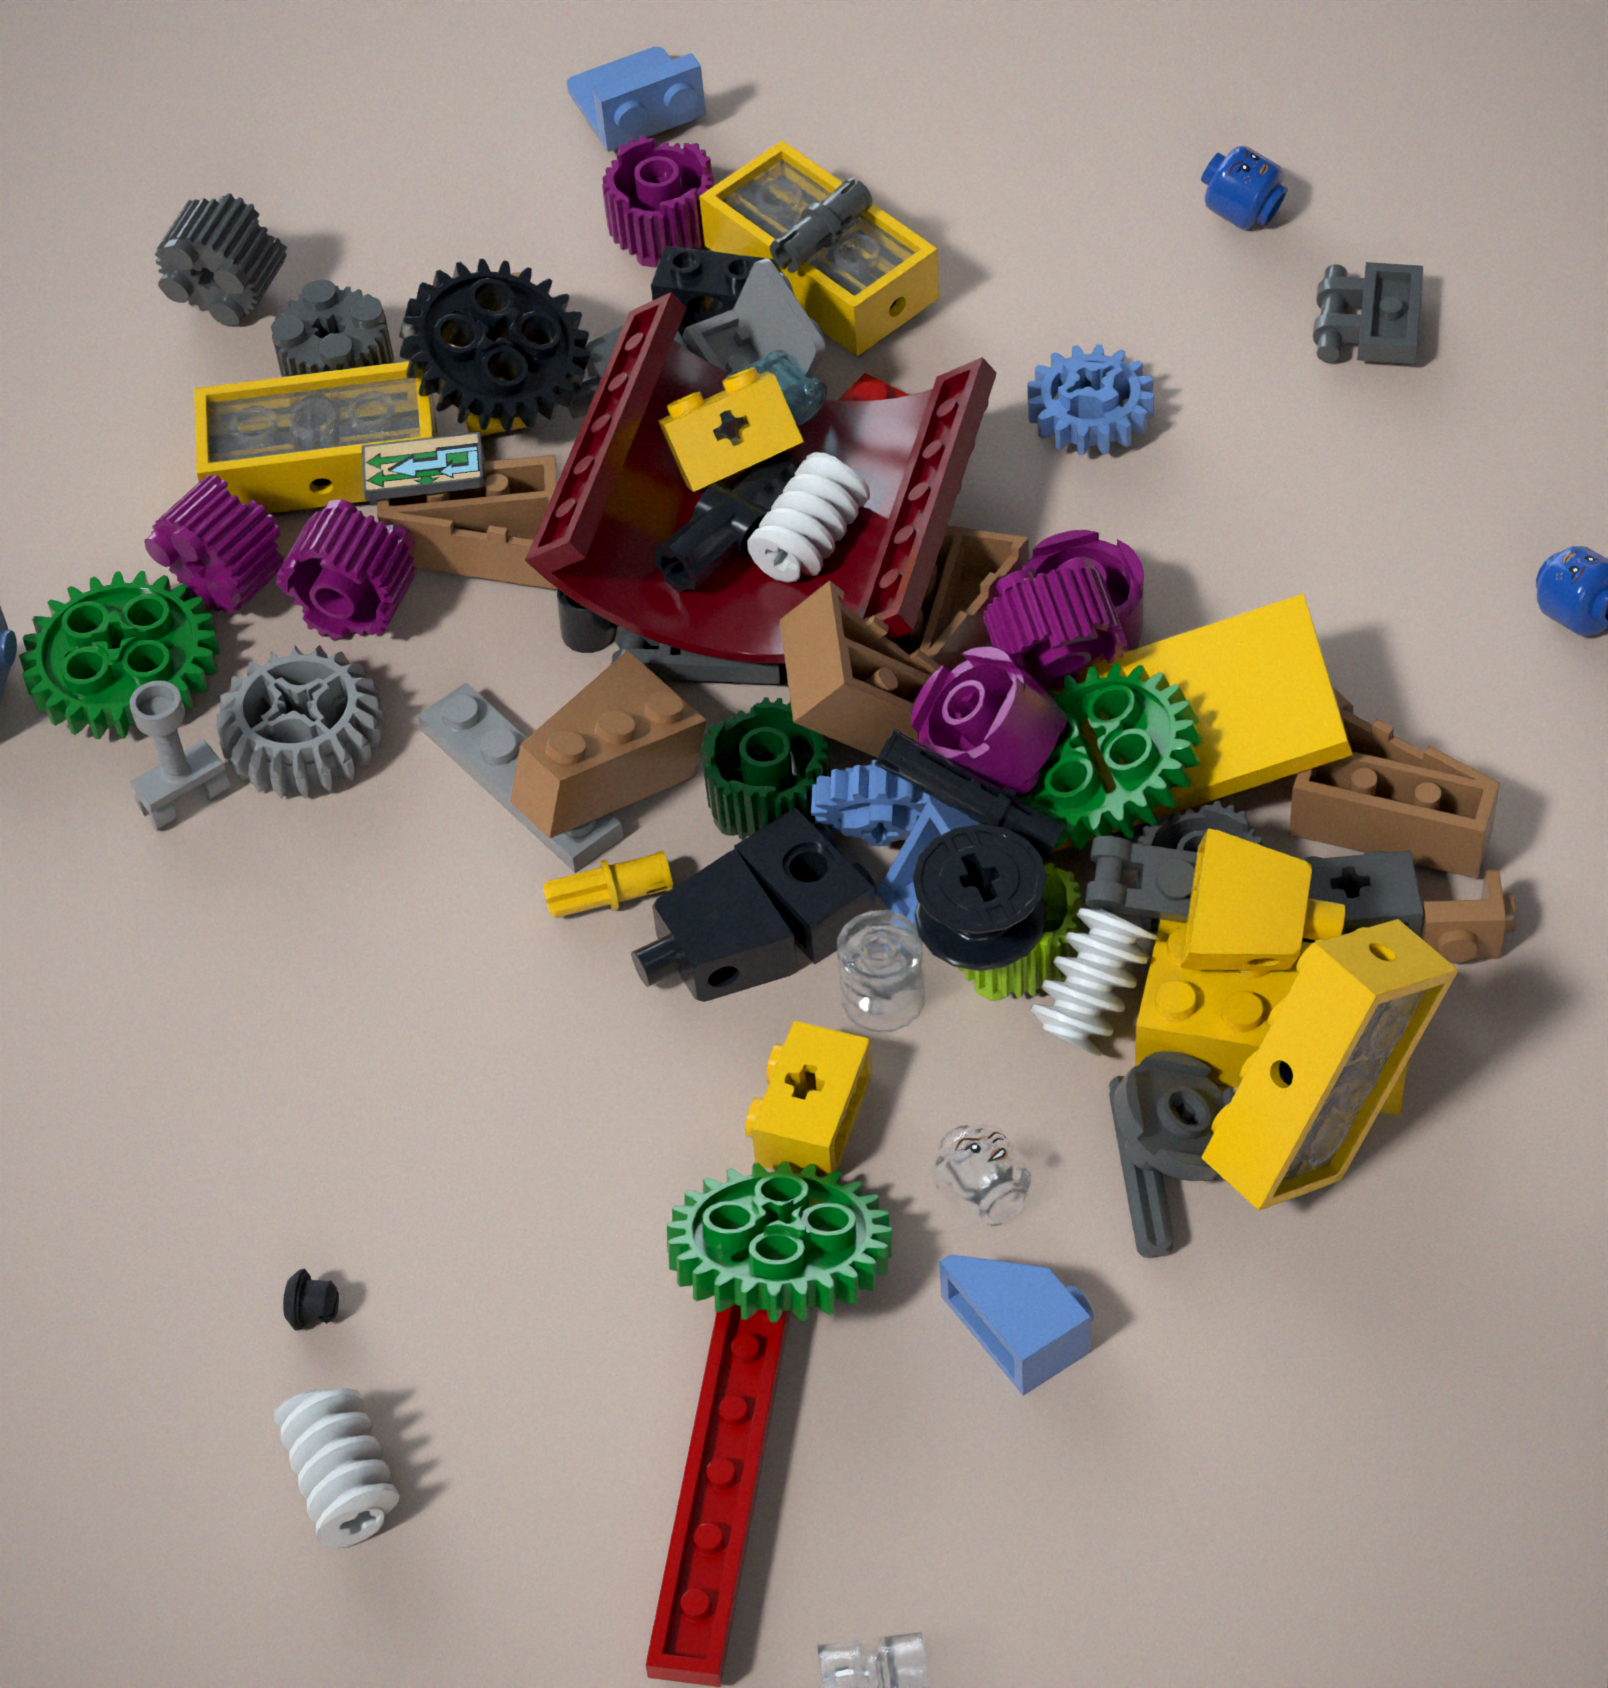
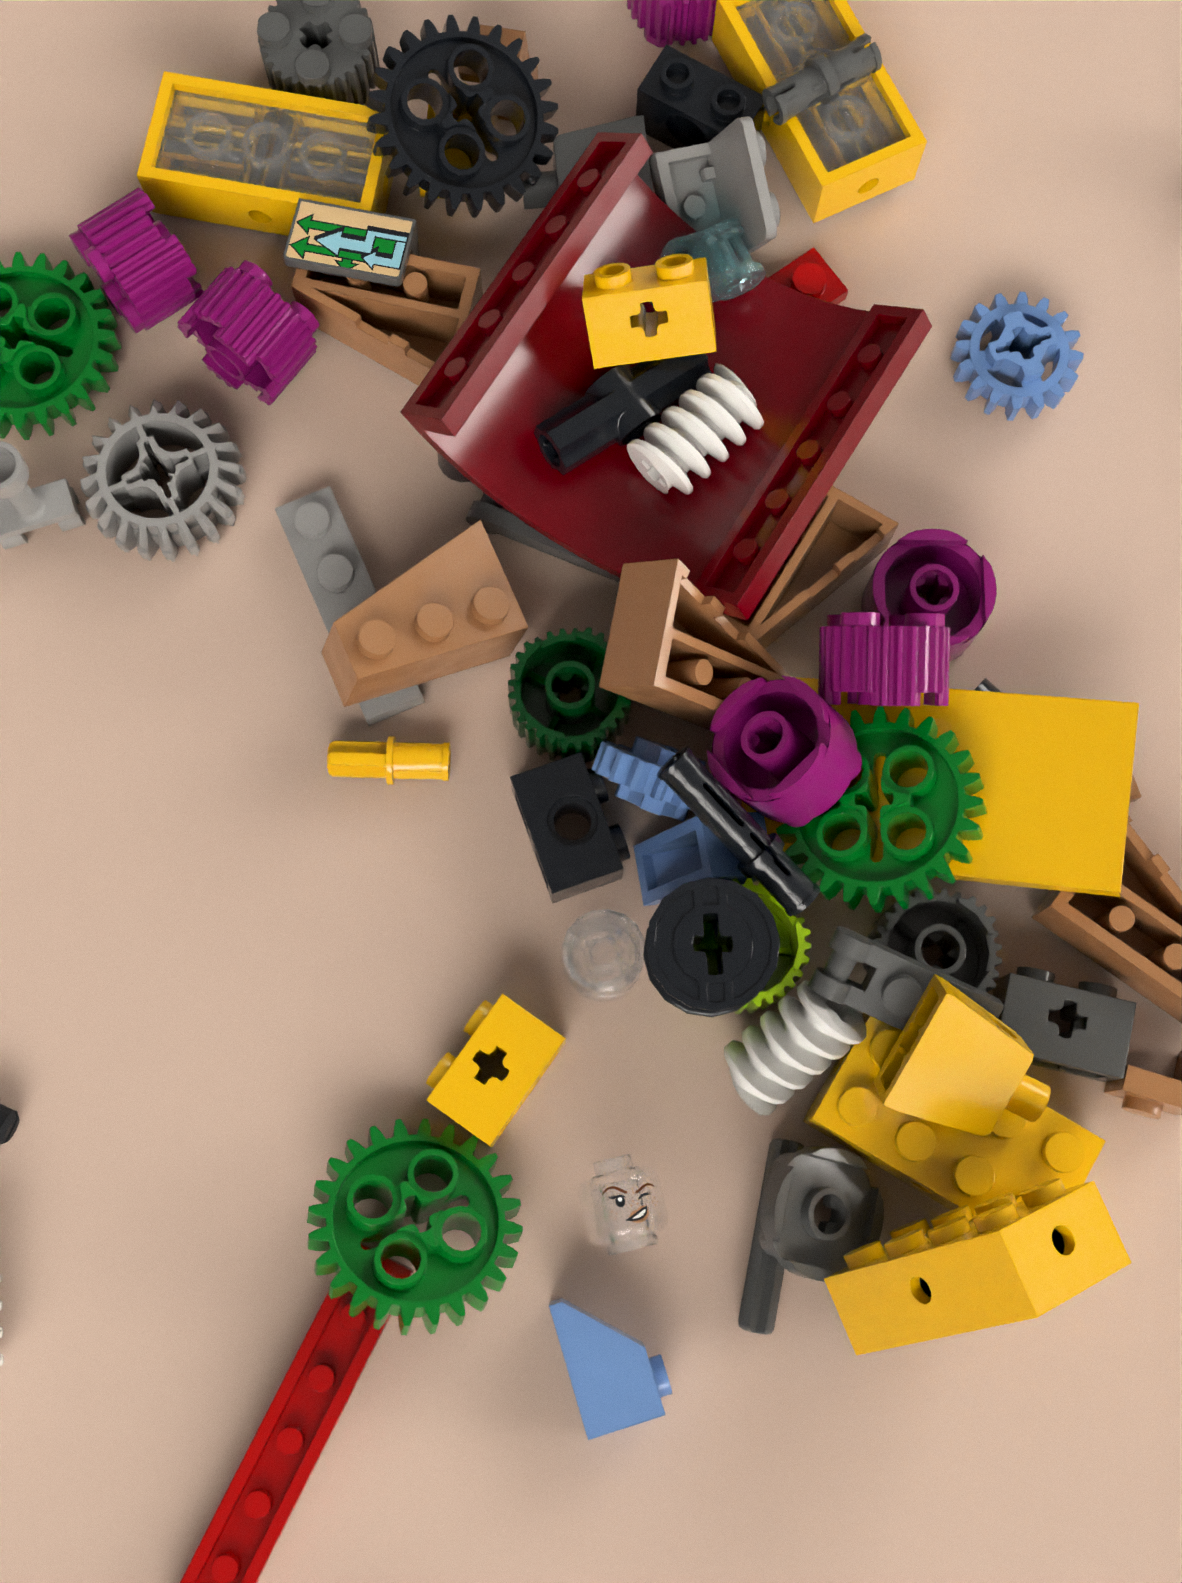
camera: 10 degrees right, 25 degrees up
(717, 933) = (467, 853): black torso -> none

